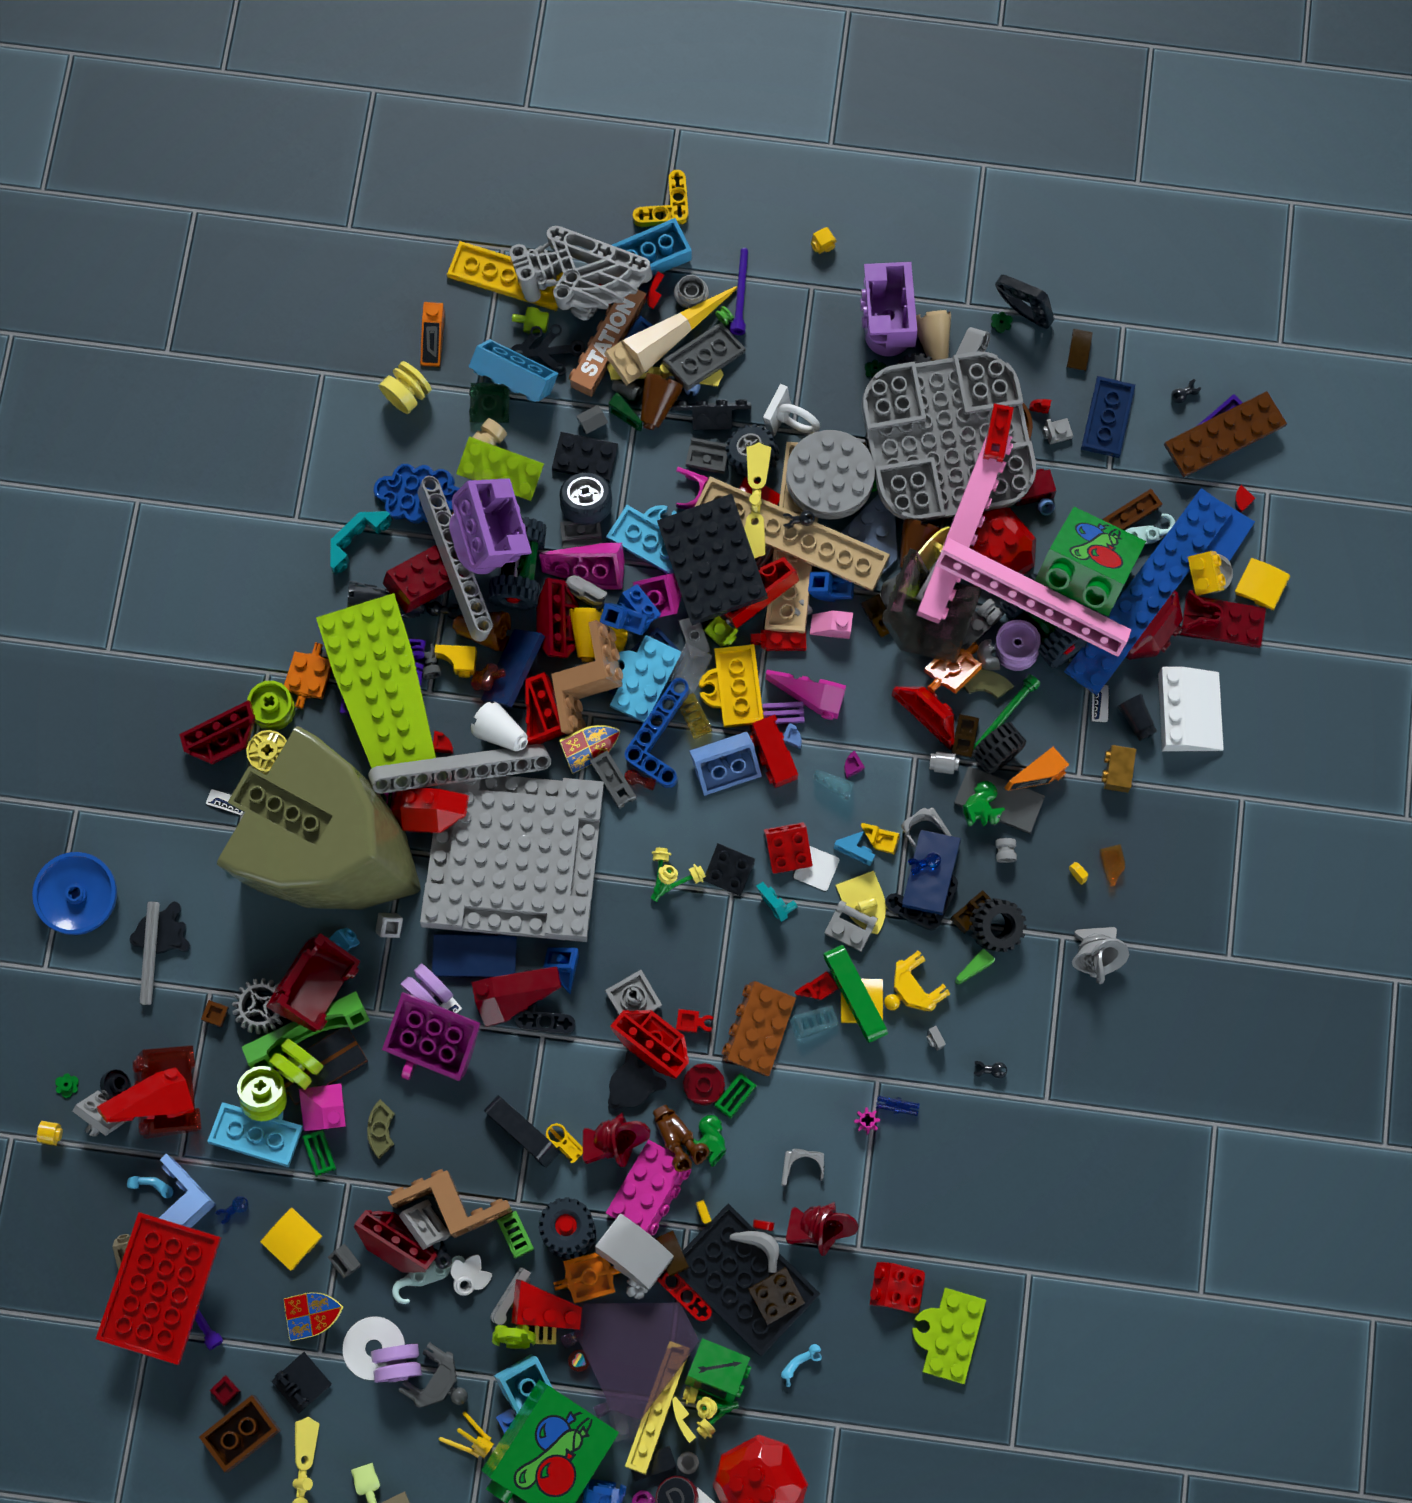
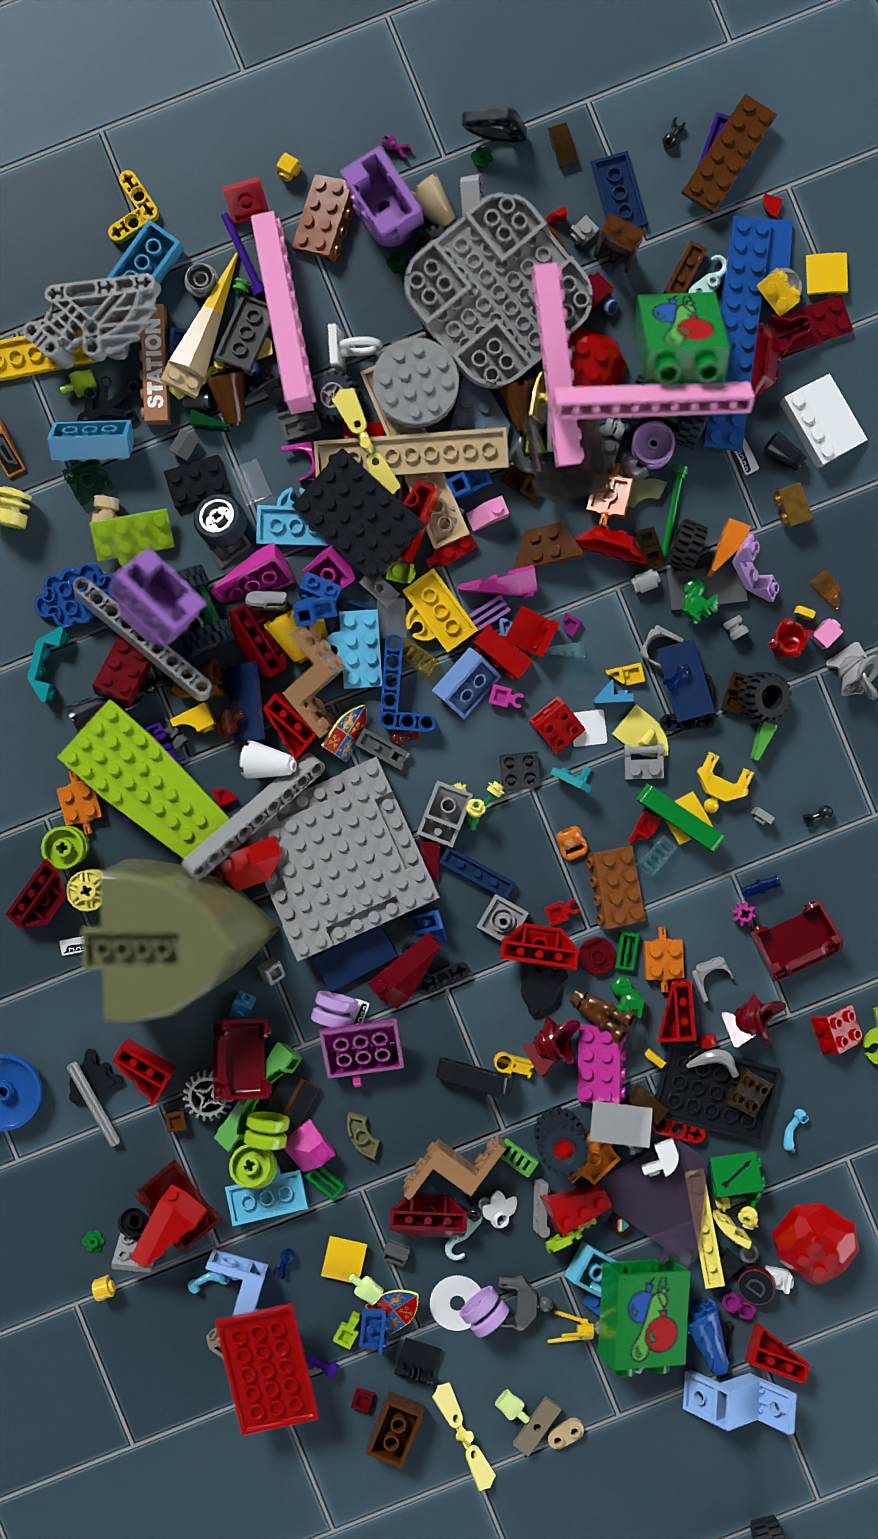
camera: 30 degrees left, 15 degrees up
(217, 947) = (144, 1068): none -> red wedge
(250, 1313) = (347, 1332): none -> lime plate
(278, 1321) = (373, 1329): none -> blue bracket
(296, 1278) = (367, 1289): none -> yellowish green piece
(421, 1226) = (440, 1196): light grey plate -> none
(601, 900) = (430, 855): none -> dark red slope
(633, 482) = (251, 482): none -> clear plate
(635, 868) = (444, 813): none -> light grey slope
(635, 940) = (477, 872): none -> dark blue plate
(652, 295) = (170, 303): red slope -> none
(659, 1316) = (667, 1159): none -> white brick
(741, 959) = (570, 838): none -> orange piece
(745, 355) = (283, 312): none -> bright pink brick
(751, 793) = (502, 695): none -> dark pink plate
(751, 1180) = (678, 1016): none -> red wedge
(765, 1123) = (663, 959): none -> orange plate
(769, 248) = (245, 200): none -> red tile
(803, 518) = (416, 436): black arm -> none
(811, 748) = (531, 631): none -> red bracket
(830, 299) = (324, 218): none -> bracket
(870, 681) = (547, 546): none -> reddish brown wing
(903, 1179) = (797, 941): none -> dark red windscreen
(926, 269) = (391, 144): none -> magenta arm
(998, 432) = (544, 265): red plate -> none
(1042, 790) = (761, 585): none -> lavender slope
(1050, 887) = (789, 639): none -> red hair
(1084, 448) = (621, 237): none -> reddish brown door
(1089, 902) = (826, 633): none -> bright pink brick

